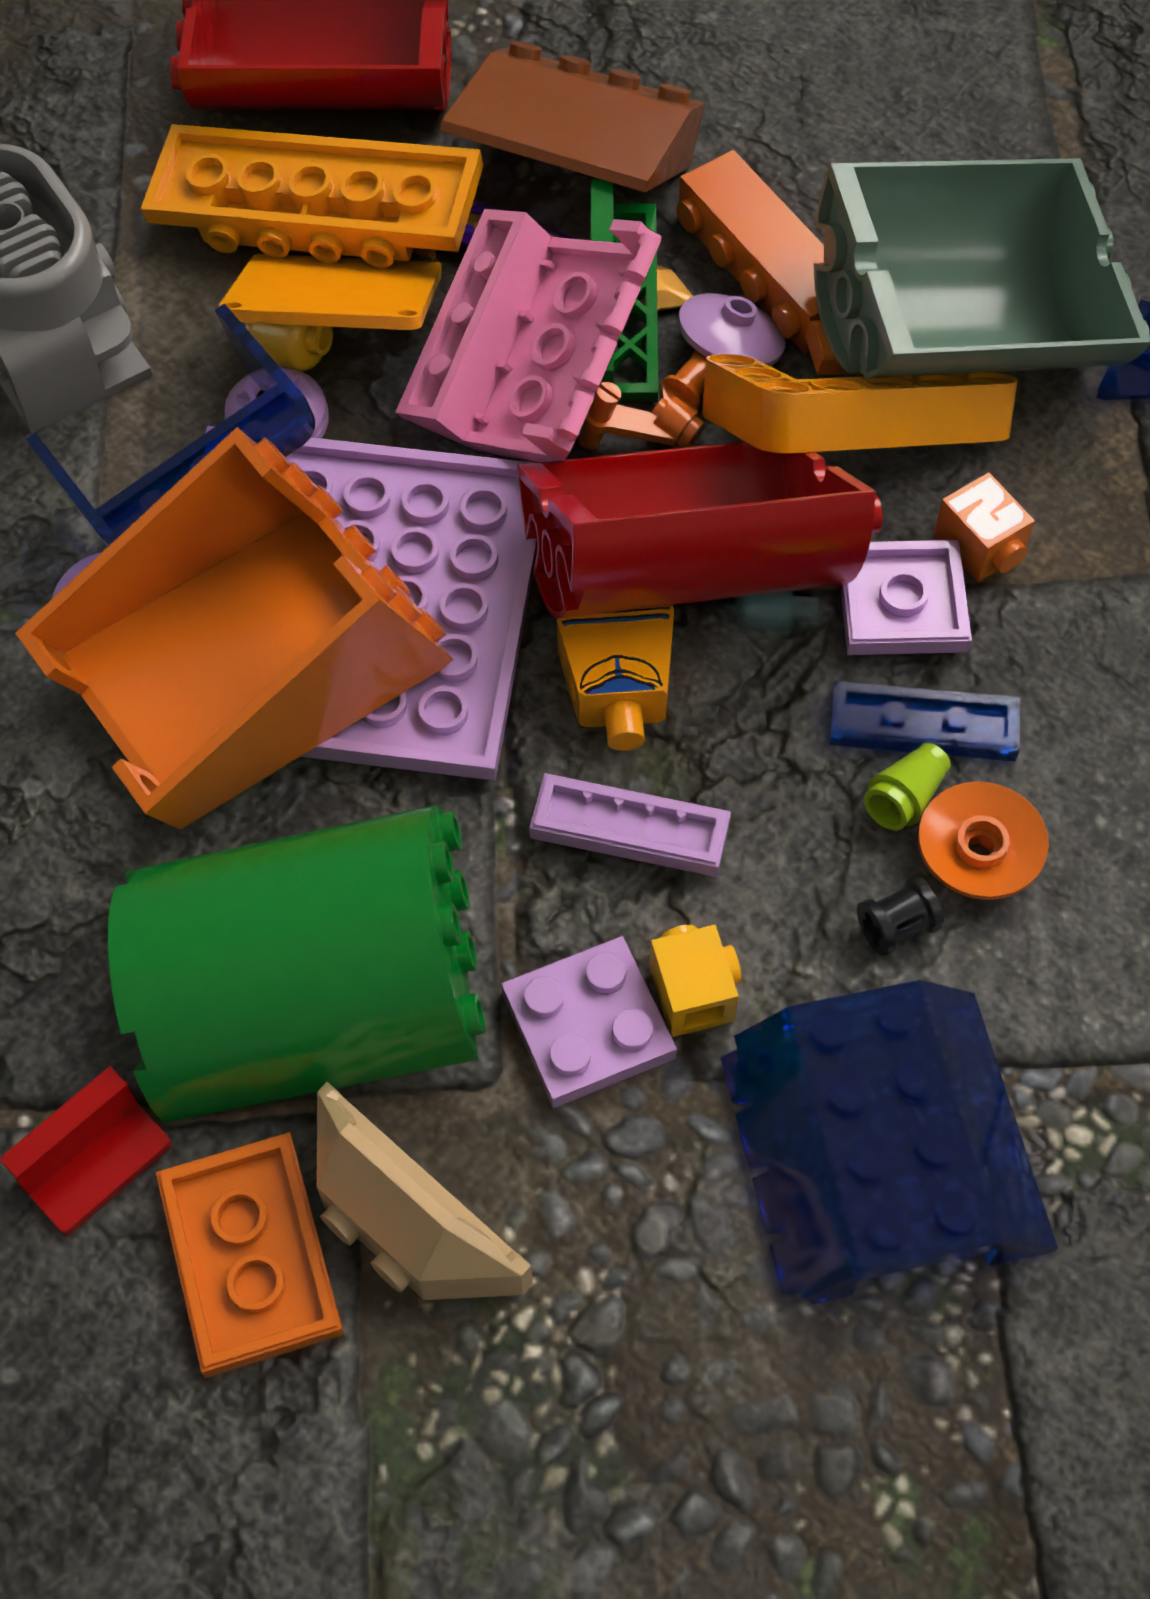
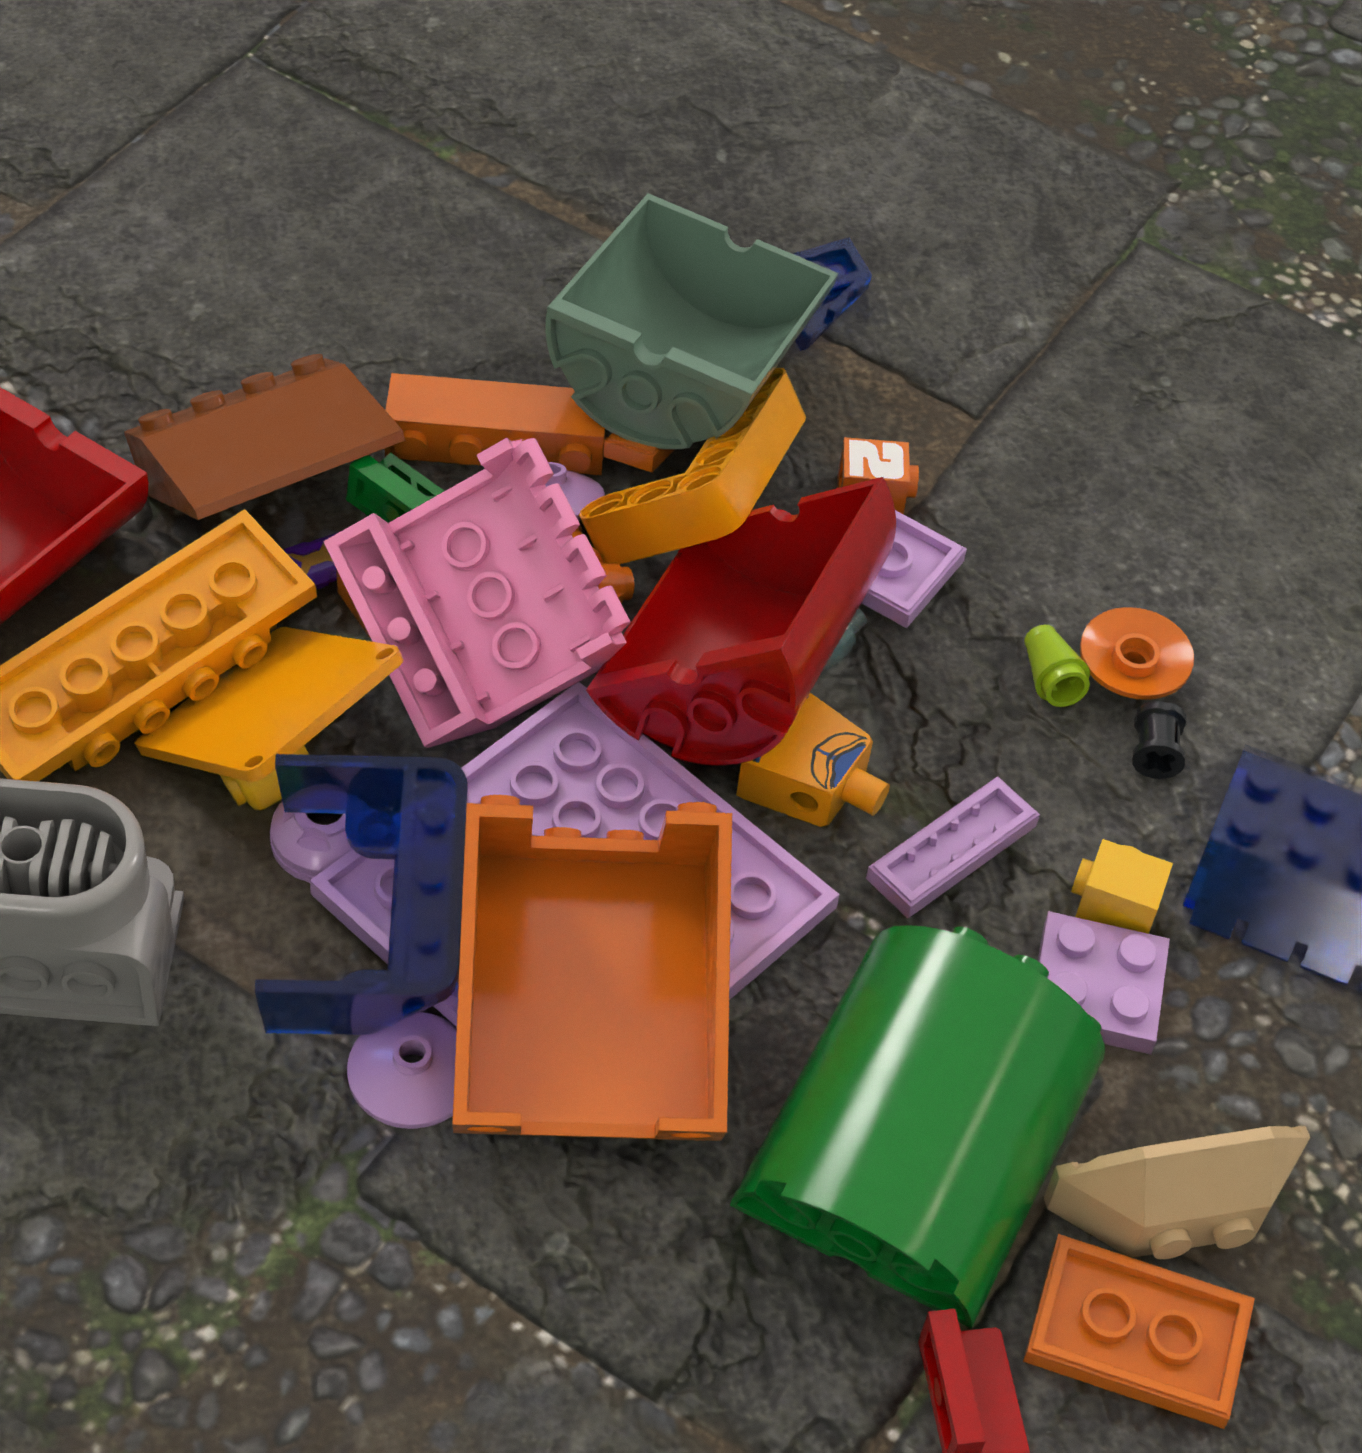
camera: 60 degrees left, 10 degrees down
(909, 717) = (999, 624): clear blue tile -> none

